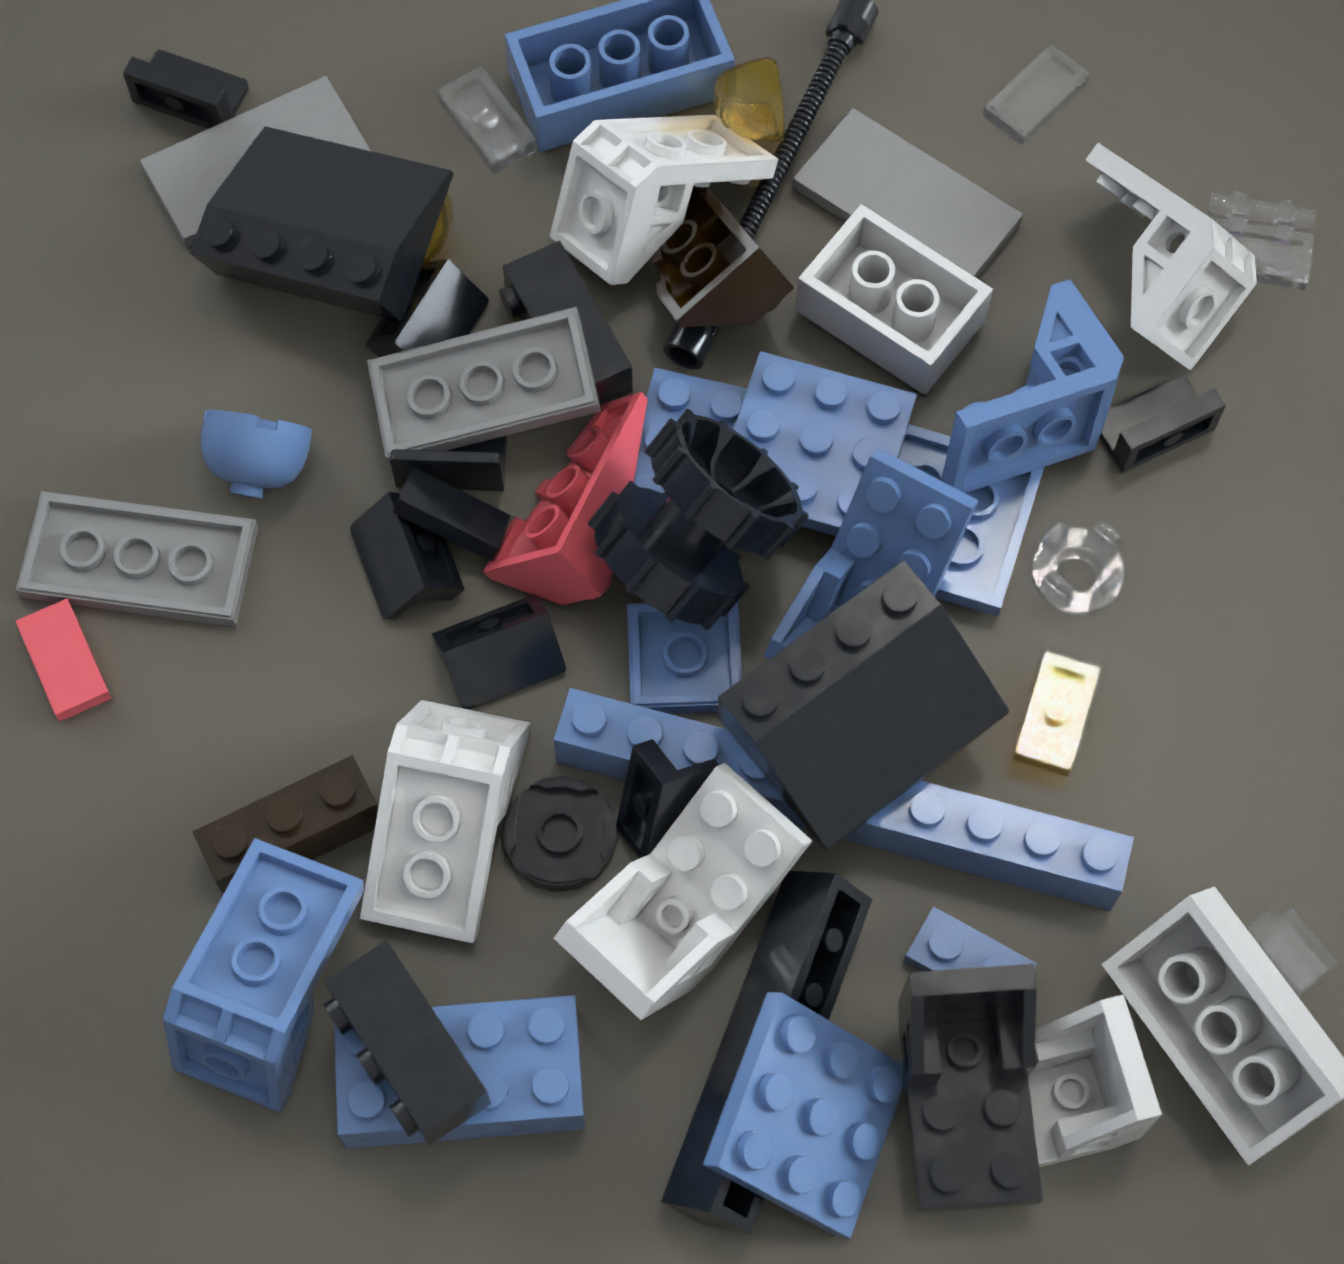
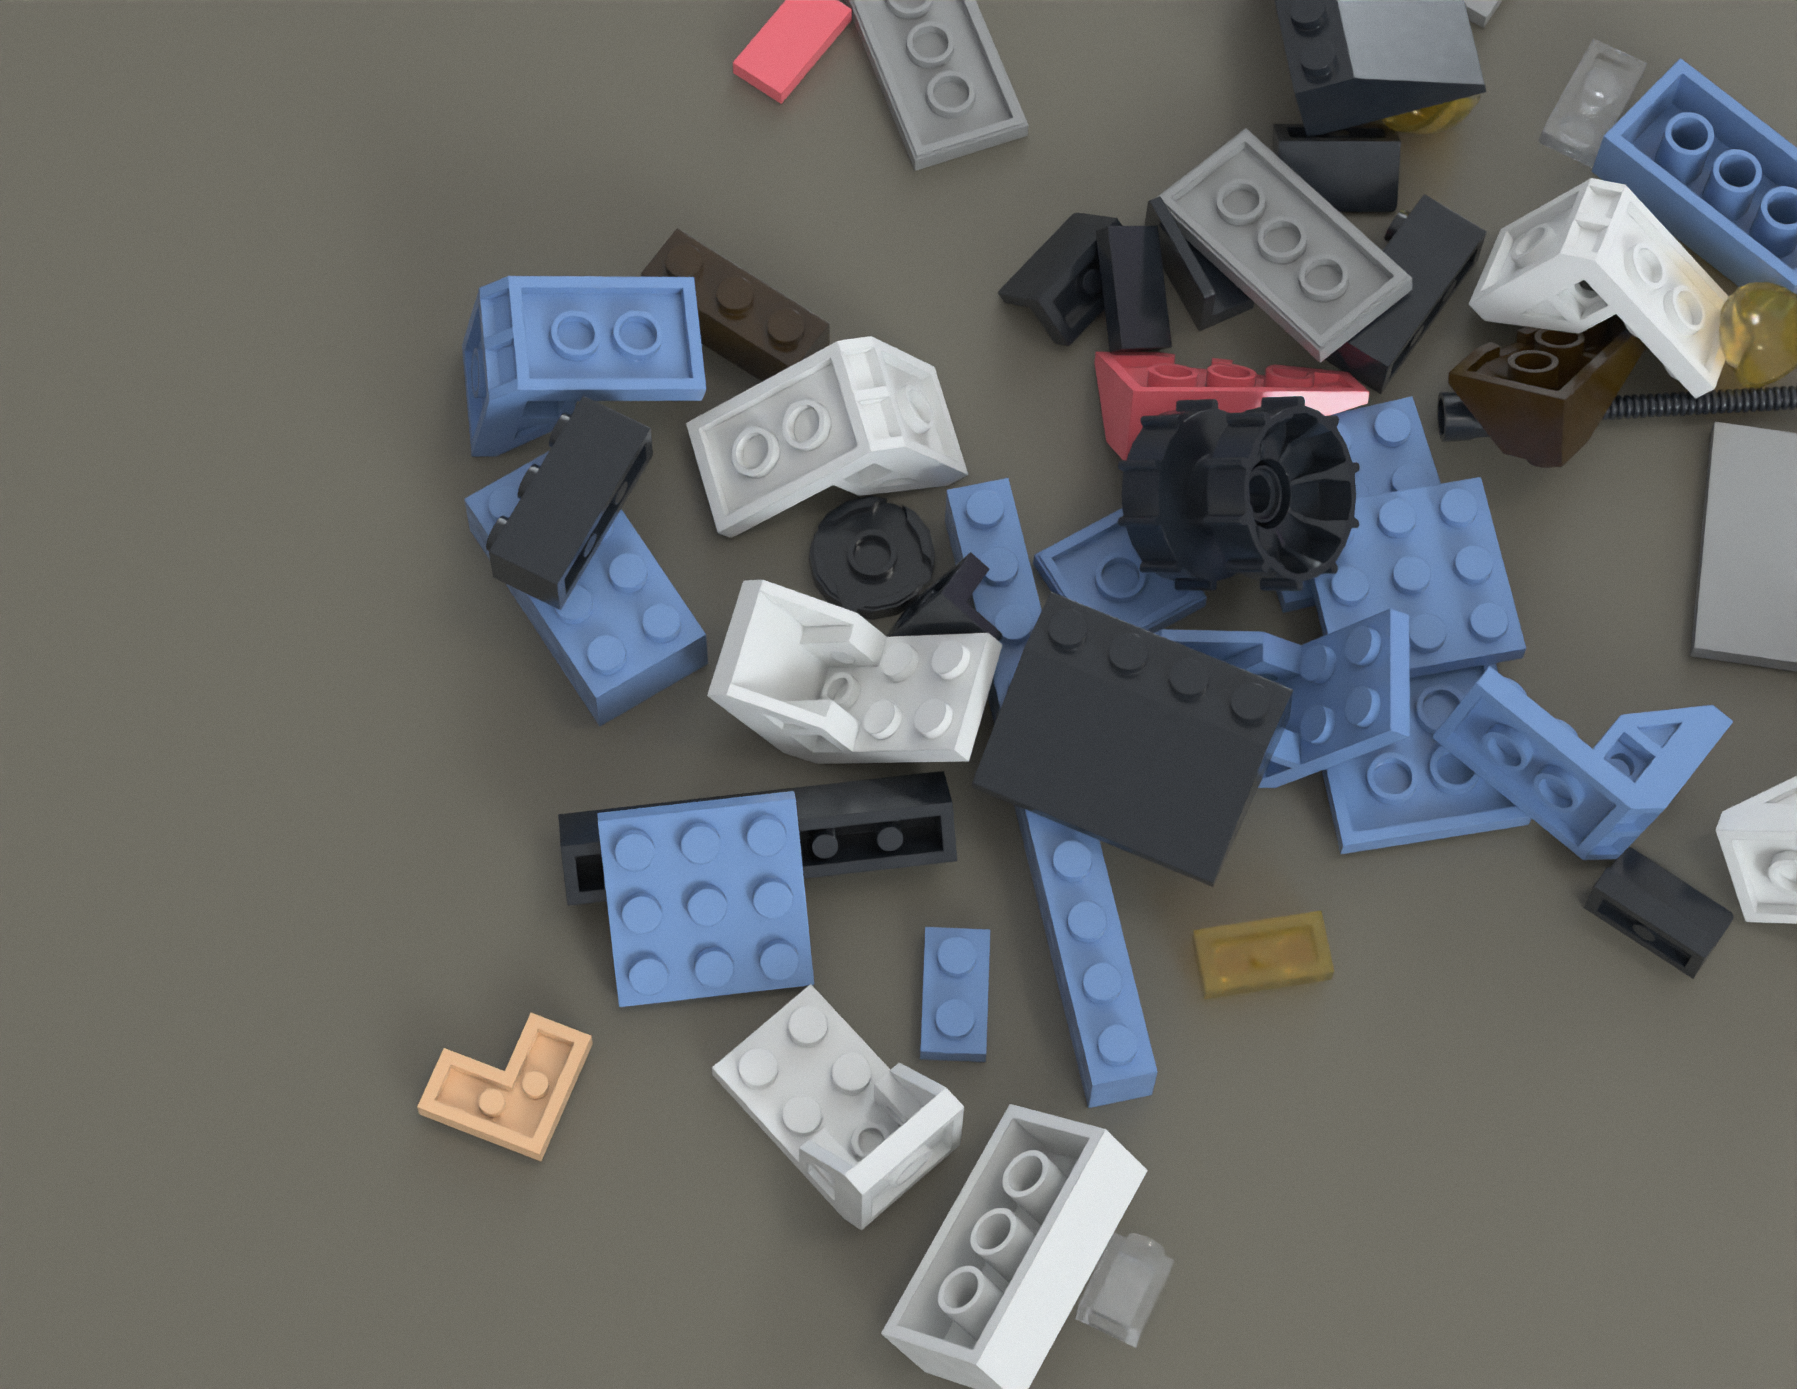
camera: 60 degrees right, 0 degrees up
(253, 451) = (1091, 82): medium blue cylinder -> none
(500, 652) = (1021, 408): black panel -> none
(892, 299) = (1626, 578): white brick -> none
(967, 1086) = (817, 1035): black bracket -> none
(1093, 546) = (1446, 873): clear piece -> none

